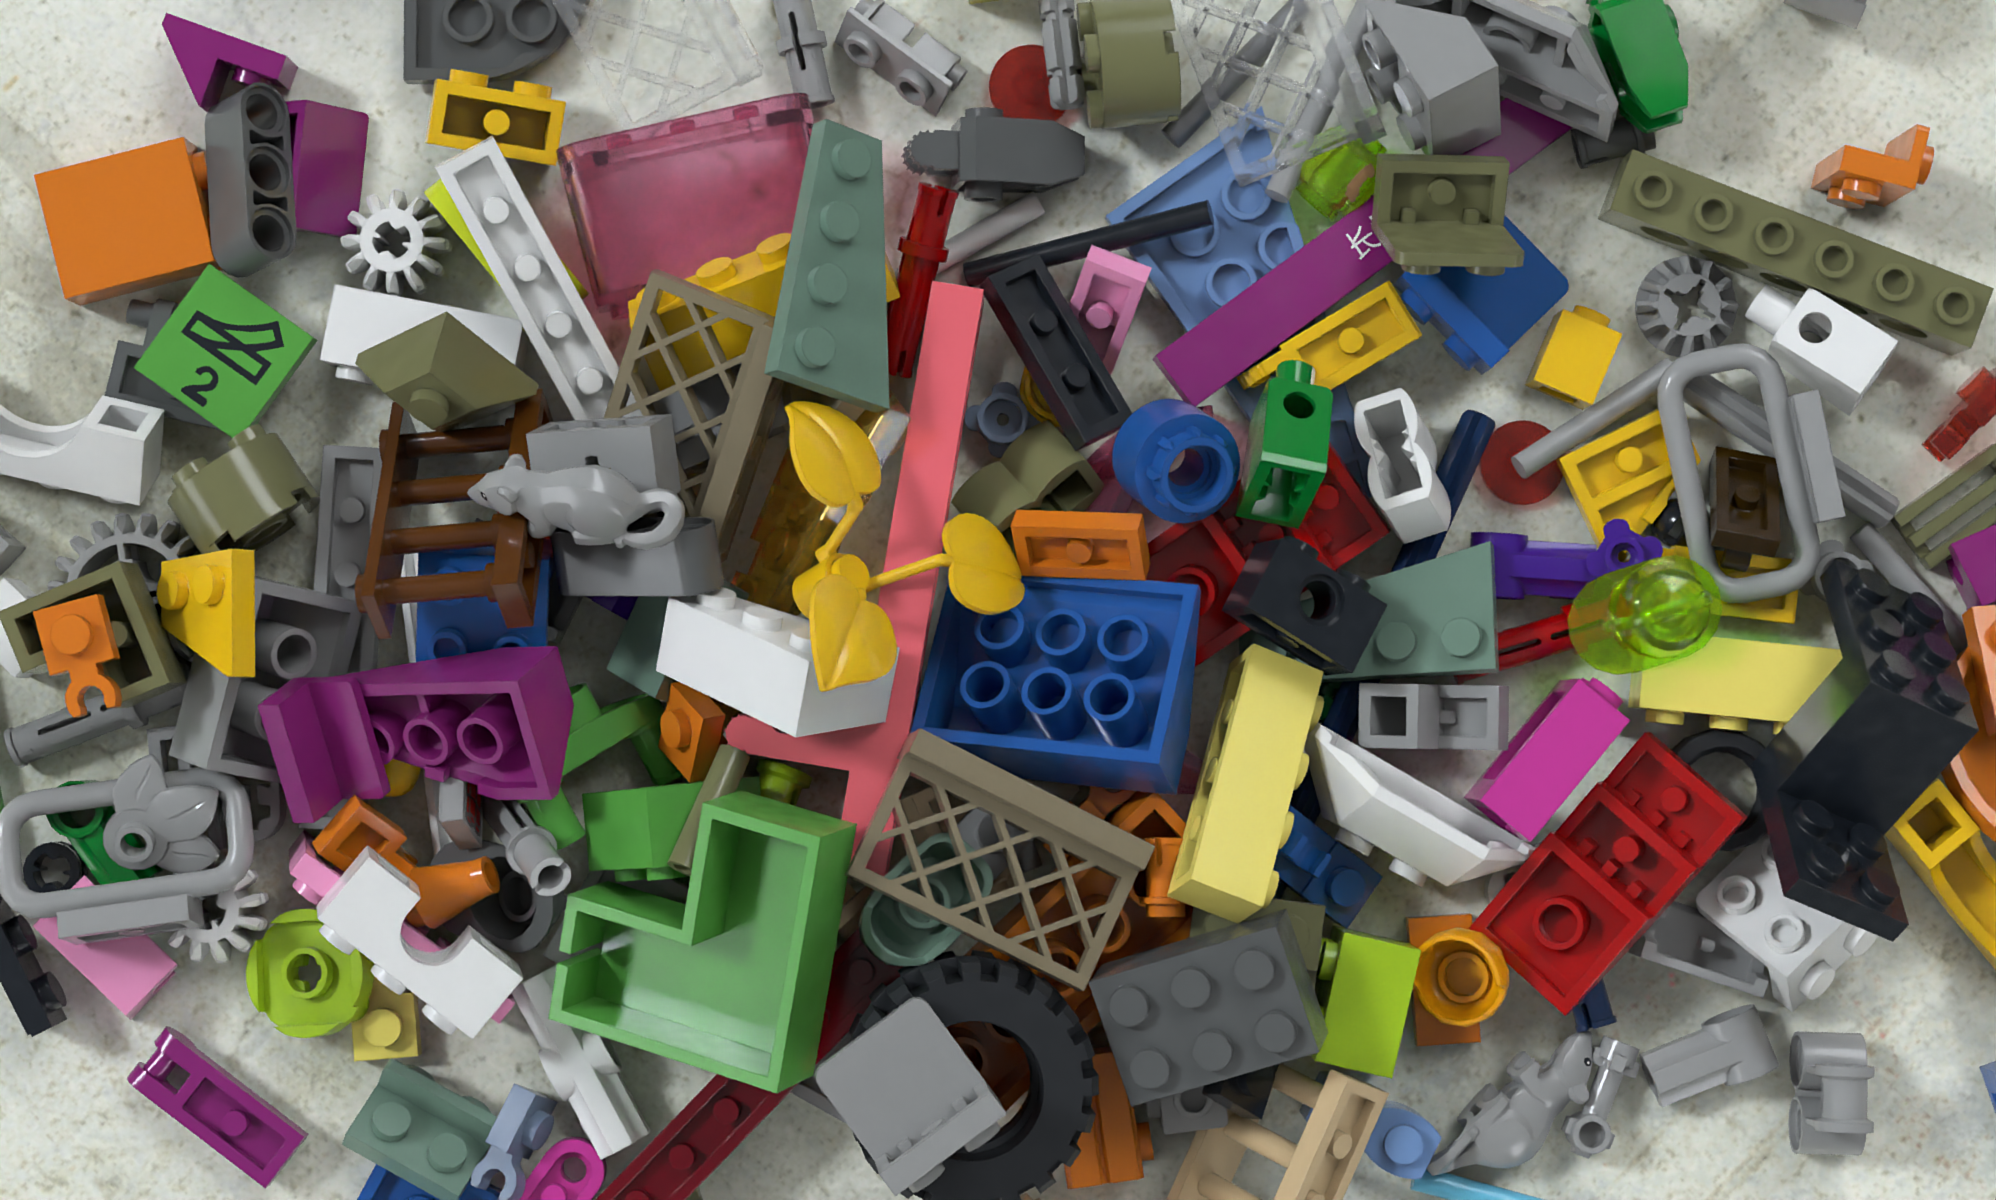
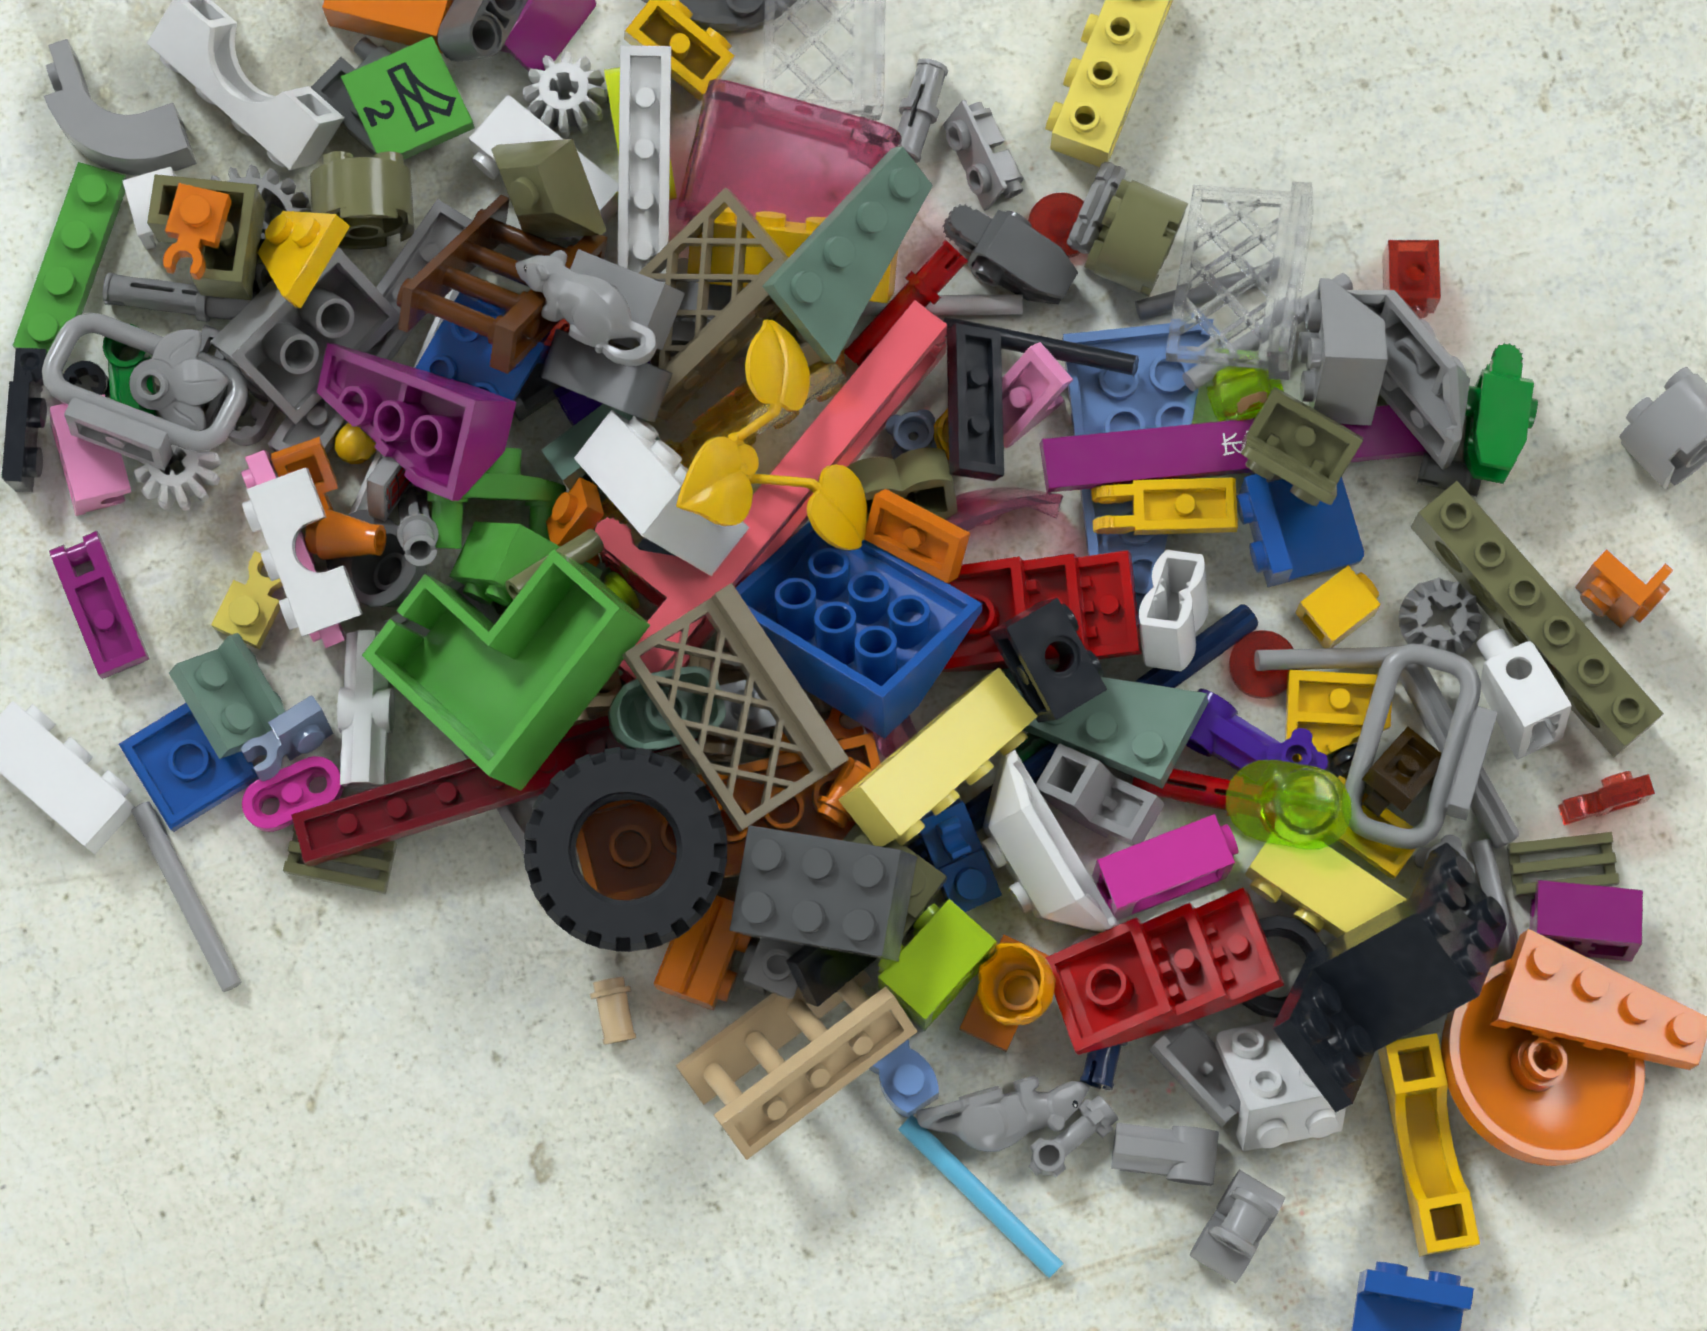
camera: 35 degrees right, 10 degrees down
(288, 1001) = (193, 561): lime plate -> none
(323, 744) = (318, 389): magenta panel -> none
(910, 1095) = (579, 816): light grey bracket -> none
(1150, 444) = (1034, 533): blue piece -> none
(1286, 447) = (1106, 531): green torso -> none

